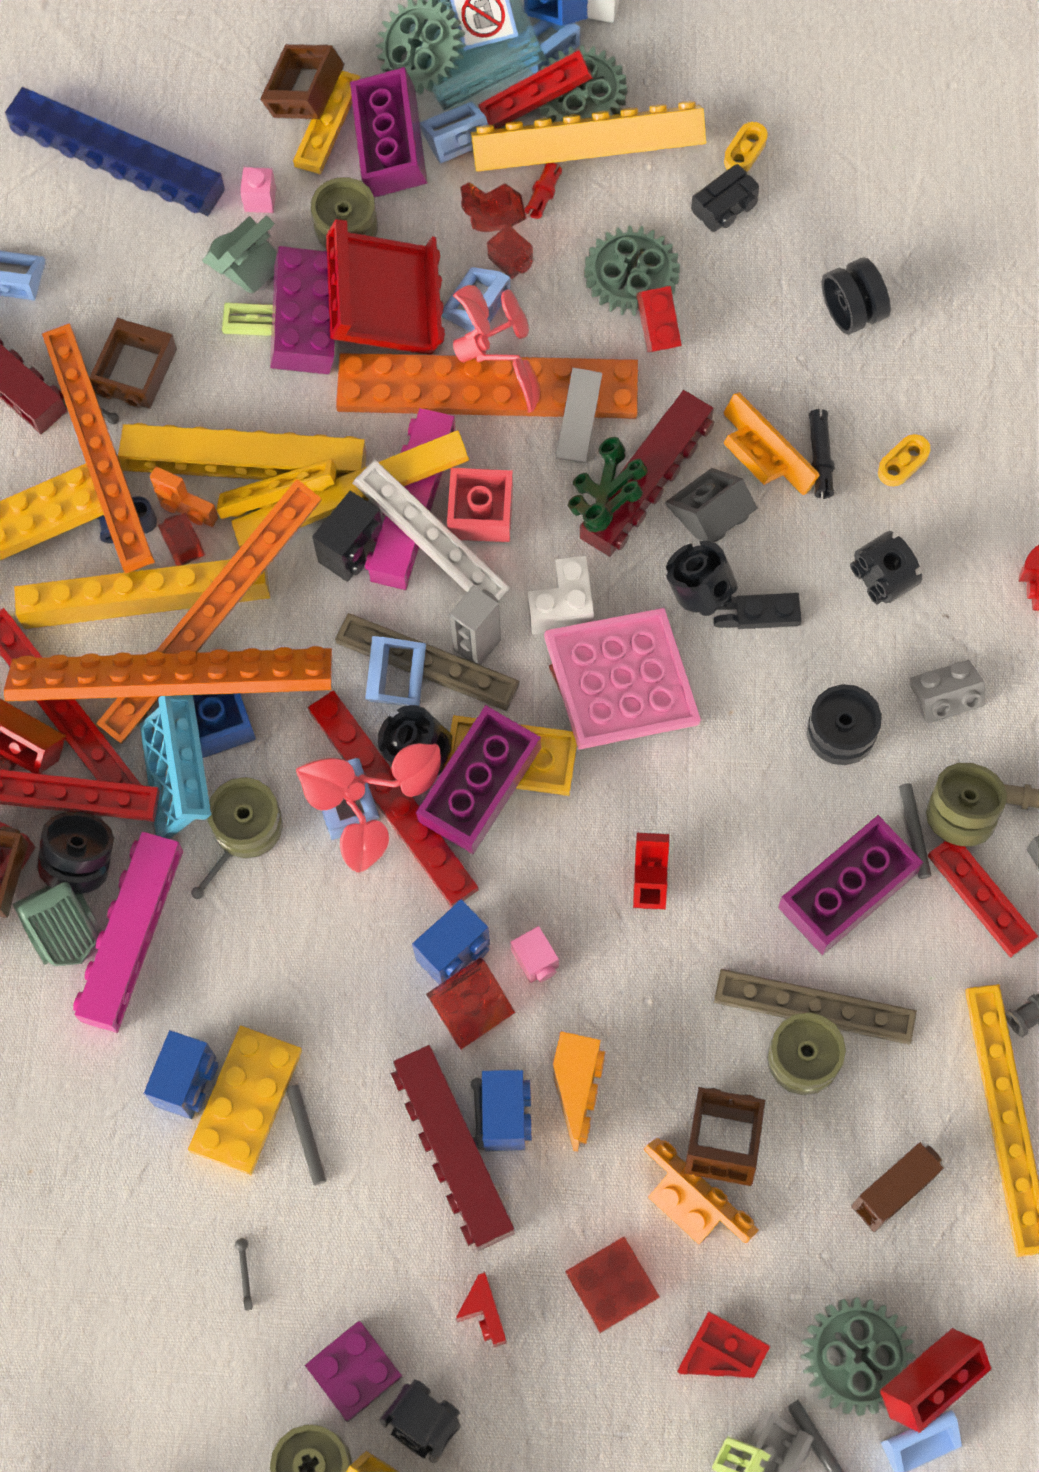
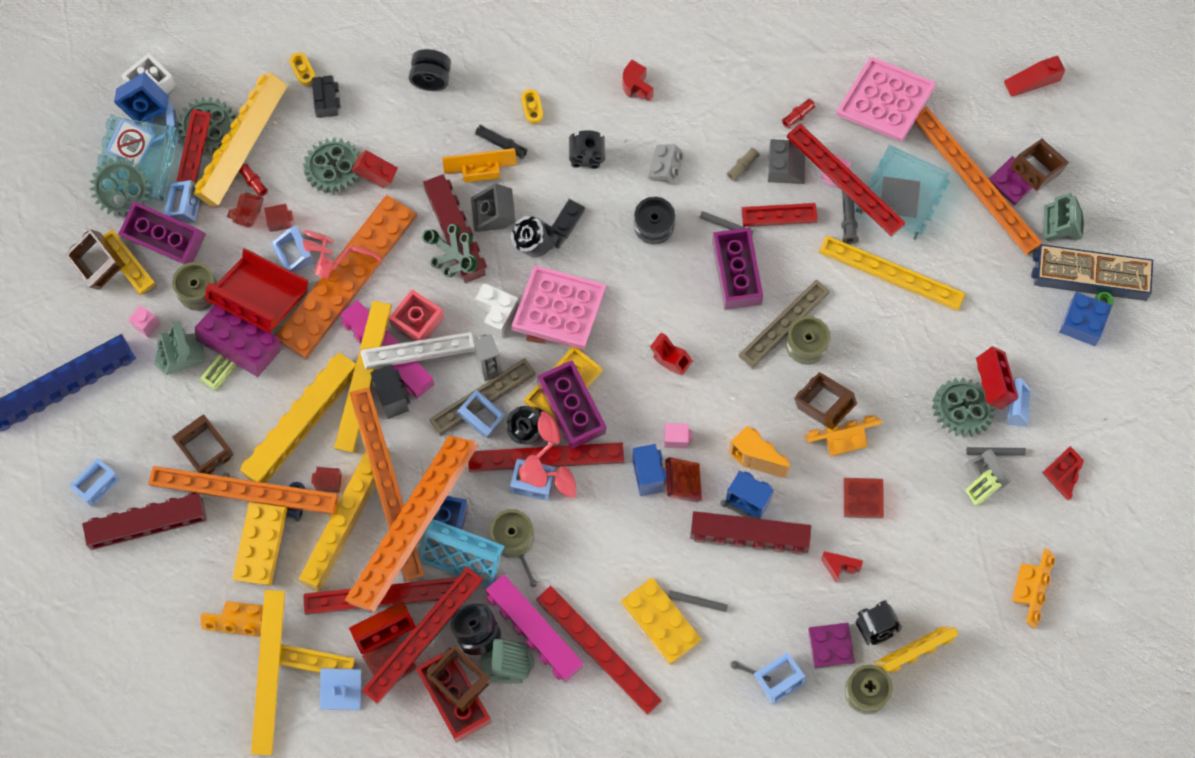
camera: 60 degrees left, 0 degrees up
(156, 1020) = (599, 650): none -> red plate
(174, 497) = (300, 466): orange plate -> none
(181, 1075) = (632, 641): blue brick -> none
(246, 1339) = (785, 687): none -> light blue tile
(270, 490) = (335, 412): yellow plate -> none
(579, 415) = (399, 240): light grey tile -> none
(723, 1350) = (924, 466): red wing -> none
(898, 1186) = (897, 338): reddish brown window -> none
(966, 804) = (732, 191): olive wheel -> none

